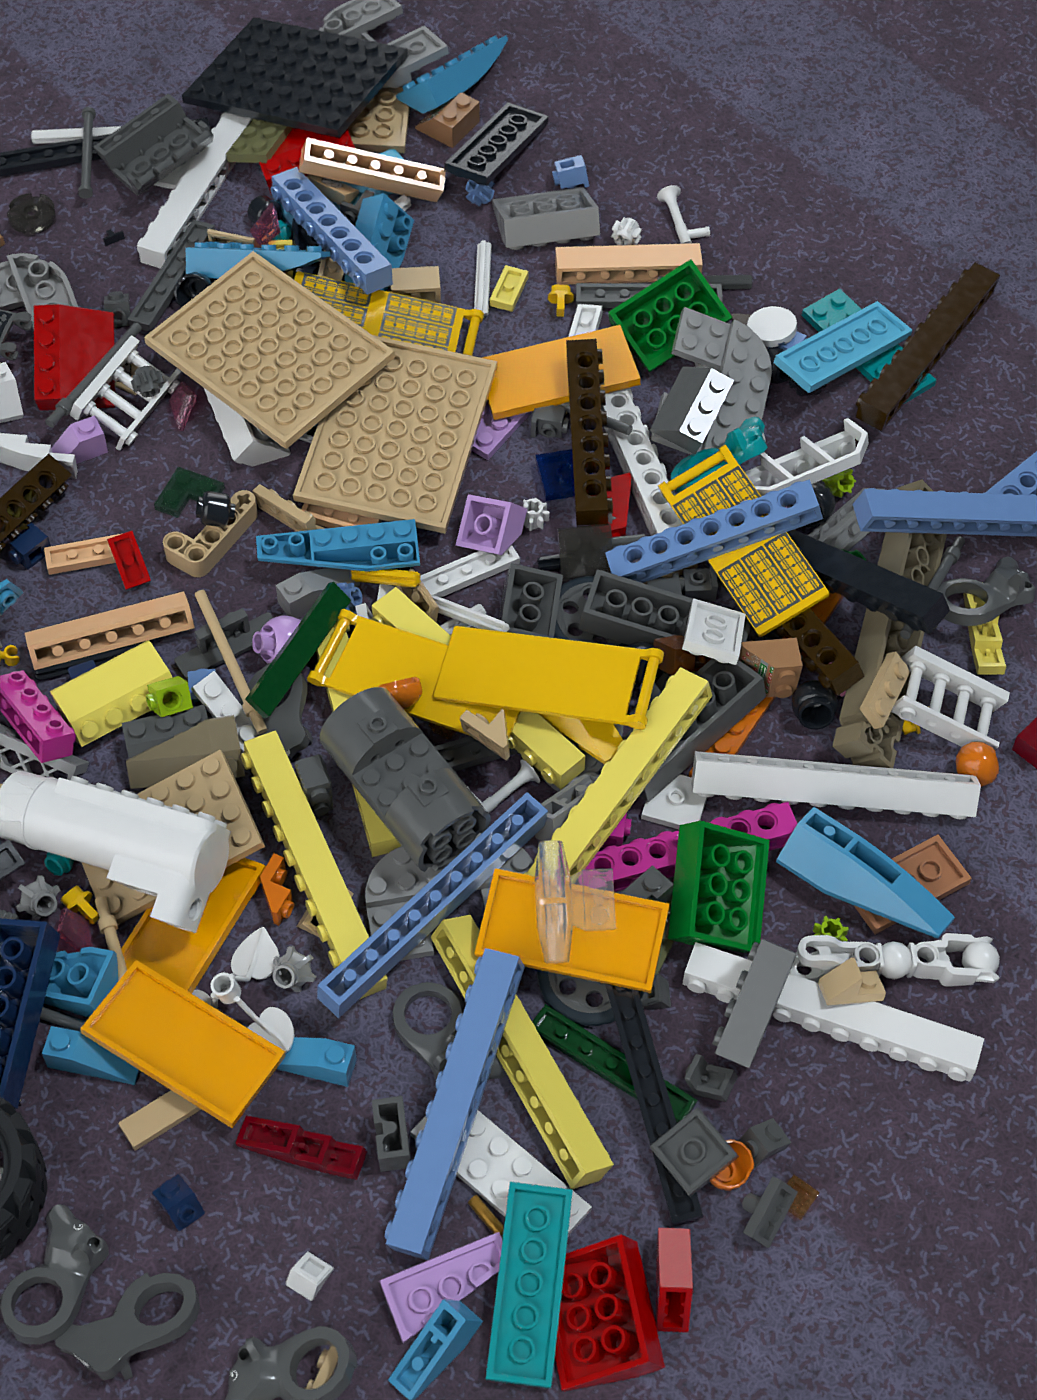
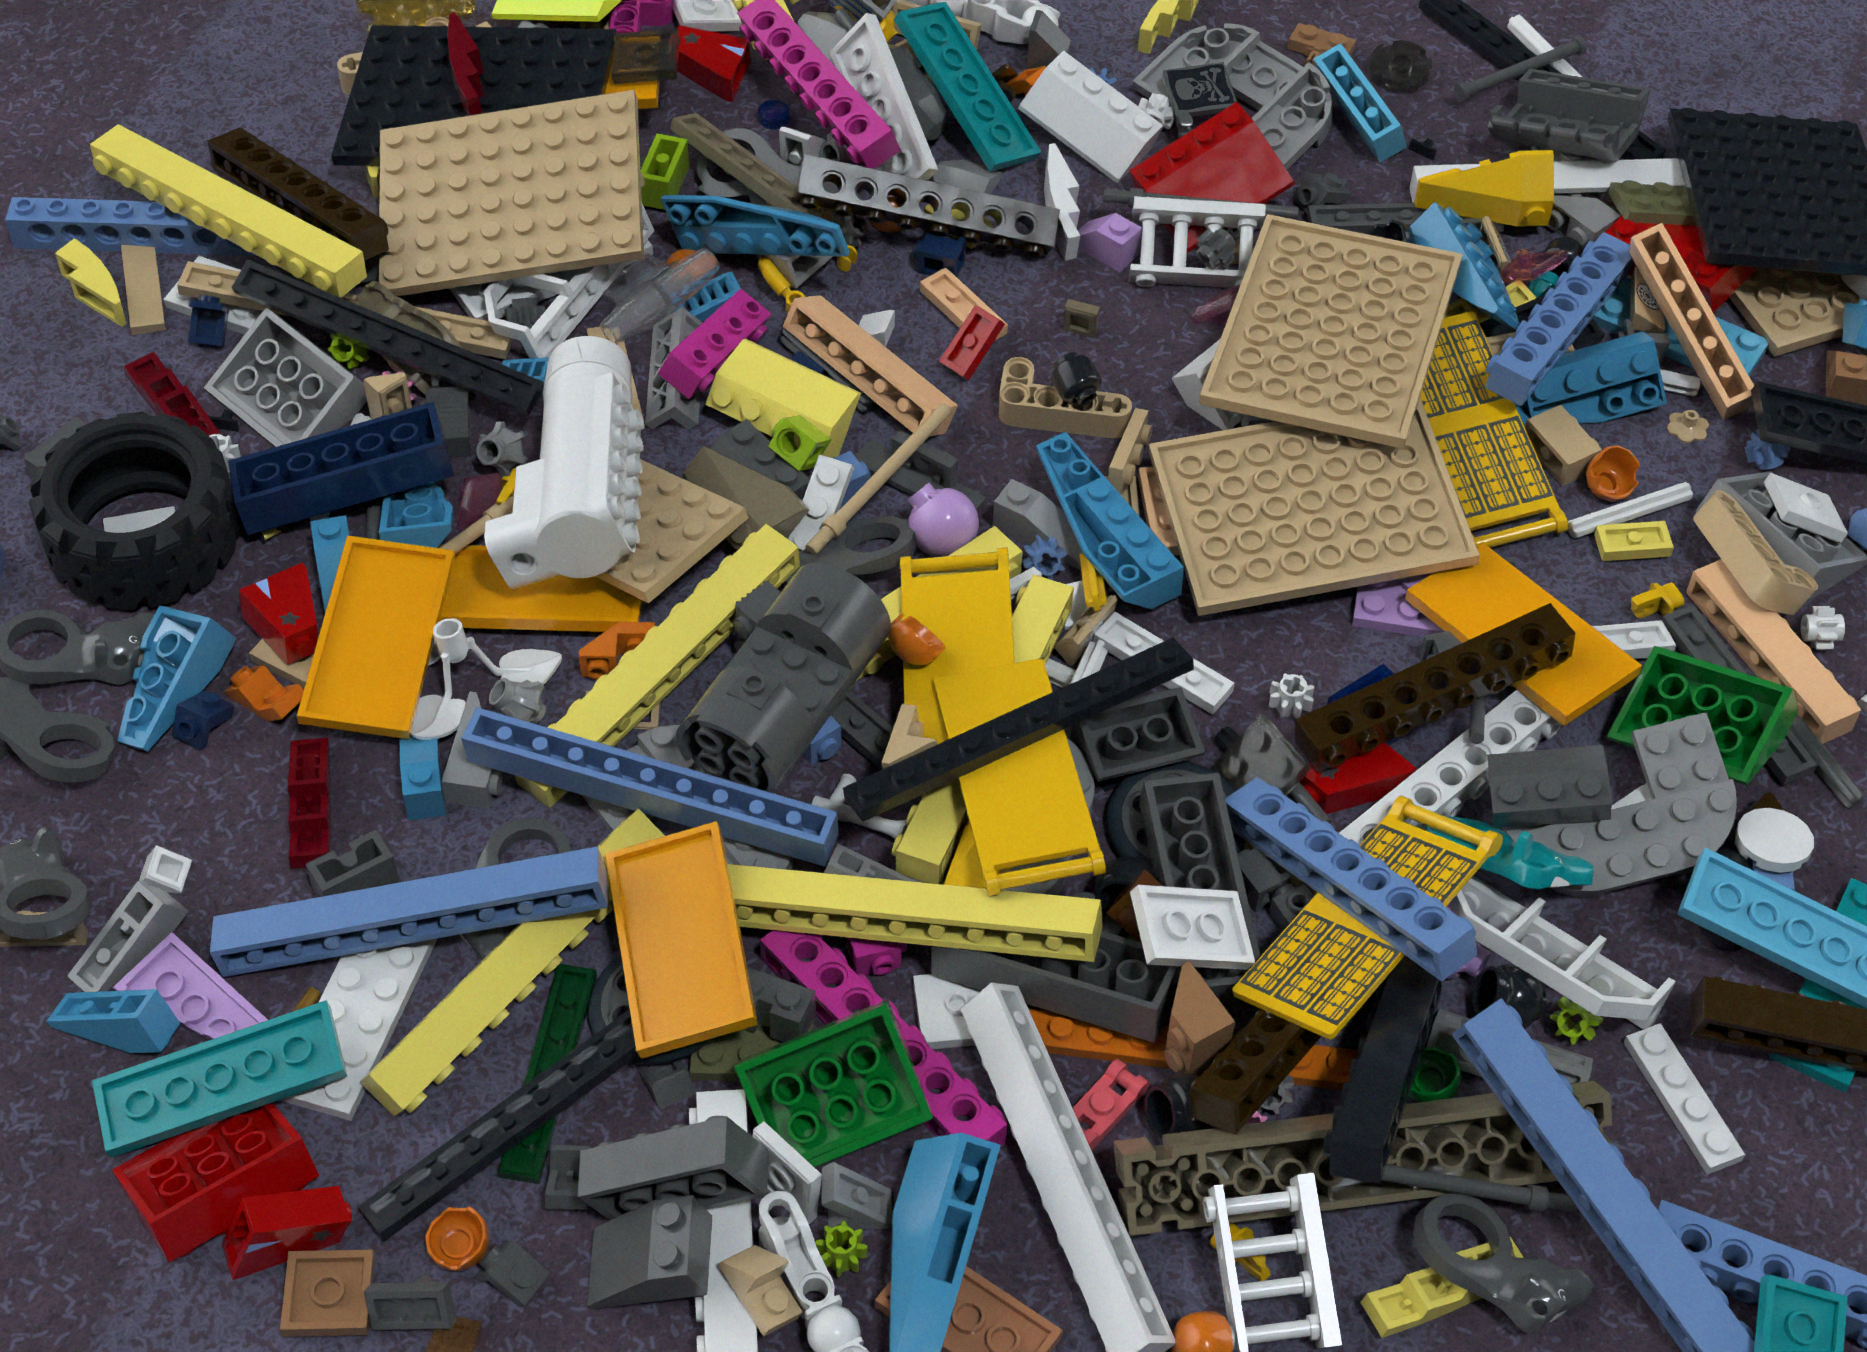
camera: 65 degrees right, 5 degrees down
(59, 246) = (1361, 103): none -> medium azure brick
(67, 611) = (879, 325): none -> white slope
(118, 1104) = (282, 613): none -> red slope
(124, 1210) = (177, 663): none -> dark azure wedge
(143, 489) = (1081, 318): none -> dark tan tile
(178, 1150) = (262, 693): none -> orange slope
(183, 487) = (1115, 356): clear green plate -> none
(201, 210) = (1508, 191): none -> yellow wedge
(237, 187) = (1581, 218): none -> light grey slope
(297, 650) = (926, 528): dark green tile -> none
(318, 1020) = (465, 781): none -> light grey slope
(367, 1319) = (129, 936): none -> light grey slope
(432, 220) = (1687, 426): none -> tan plant
(455, 273) = (1612, 473): none -> orange hair
(490, 524) = (1238, 653): lavender slope -> none
(515, 662) = (1017, 729): none -> black plate
(537, 194) = (1805, 508): none -> white plate
(564, 235) = (1751, 557): none -> tan beam
(568, 901) = (700, 906): clear plate -> none
(694, 1151) = (449, 1185): dark grey plate -> none
(731, 1267) = (327, 1293): none -> medium nougat plate
(782, 932) = (790, 1171): none -> white plate
(784, 747) = (1104, 1107): none -> coral plate
(795, 1049) = (651, 1254): none -> dark grey slope
(797, 915) = (855, 1199): none -> light grey slope
(885, 690) = (1226, 1164): tan plate -> none
(911, 459) = (1684, 1099): none -> white plate

